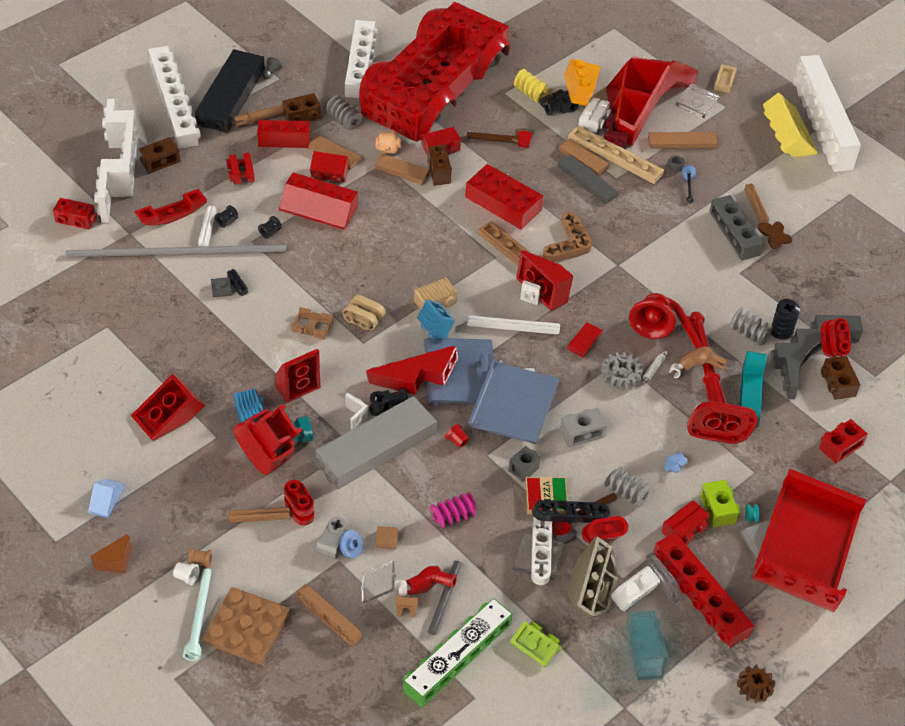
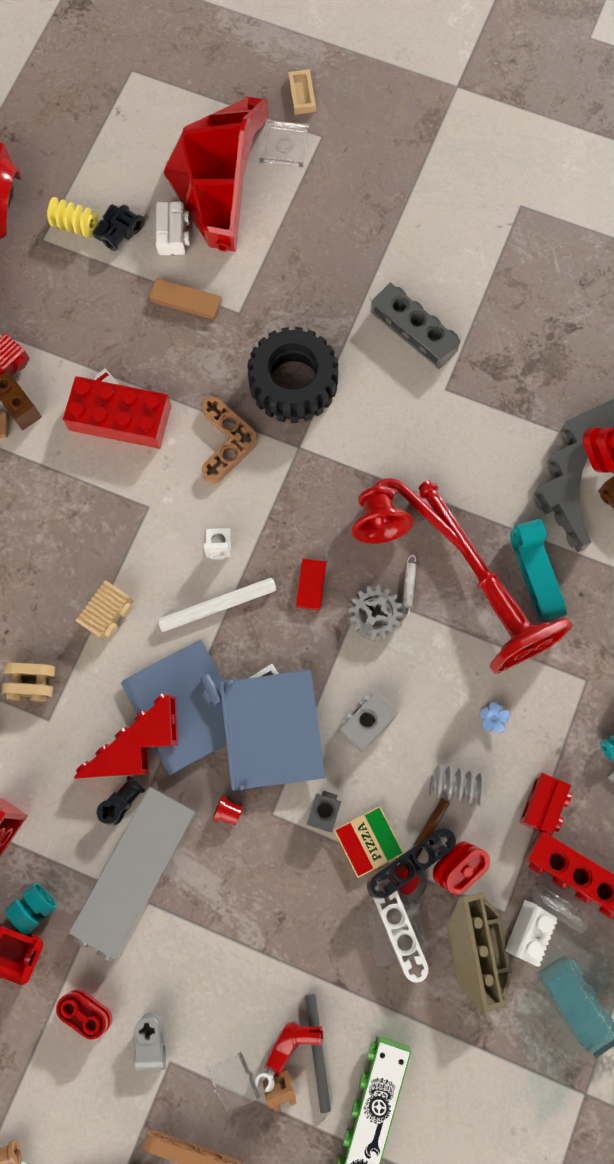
camera: 20 degrees left, 25 degrees up
(259, 514) = (41, 1052): medium nougat axle -> none
(350, 544) = (174, 1042): medium blue piece -> none
(358, 407) = (88, 827): white bracket -> none
(386, 537) = (211, 1002): medium nougat tile -> none
(435, 320) = (122, 654): dark azure brick -> none
(453, 509) = (273, 928): dark pink piece -> none
(502, 241) = (158, 484): medium nougat tile -> none
(522, 138) = (99, 306): piece -> none
(536, 644) = (452, 1065): lime bracket -> none
(552, 278) = (228, 524): red slope -> none
(581, 80) = (132, 184): light orange wedge -> none
(587, 179) = (205, 331): dark grey tile -> none
(616, 138) = (211, 256): dark red bracket -> none
(616, 154) = (223, 277): tan plate -> none
(634, 235) = (288, 347): none -> black tyre
(676, 163) = (301, 257): dark grey tile -> none
(682, 140) = (292, 215): medium nougat tile -> none
(689, 176) = (323, 267): hinge -> none
(698, 356) = (461, 556): medium nougat arm -> none
(712, 496) = (556, 748): lime brick -> none
(750, 327) = (496, 472): light grey piece -> none
(756, 203) = (422, 275): medium nougat axle -> none
(775, 234) = (465, 315): reddish brown animal -> none
(785, 319) = (534, 446): black piece -> none
(789, 127) = (411, 137): light yellow slope -> none
(826, 113) = (448, 96): white brick -> none

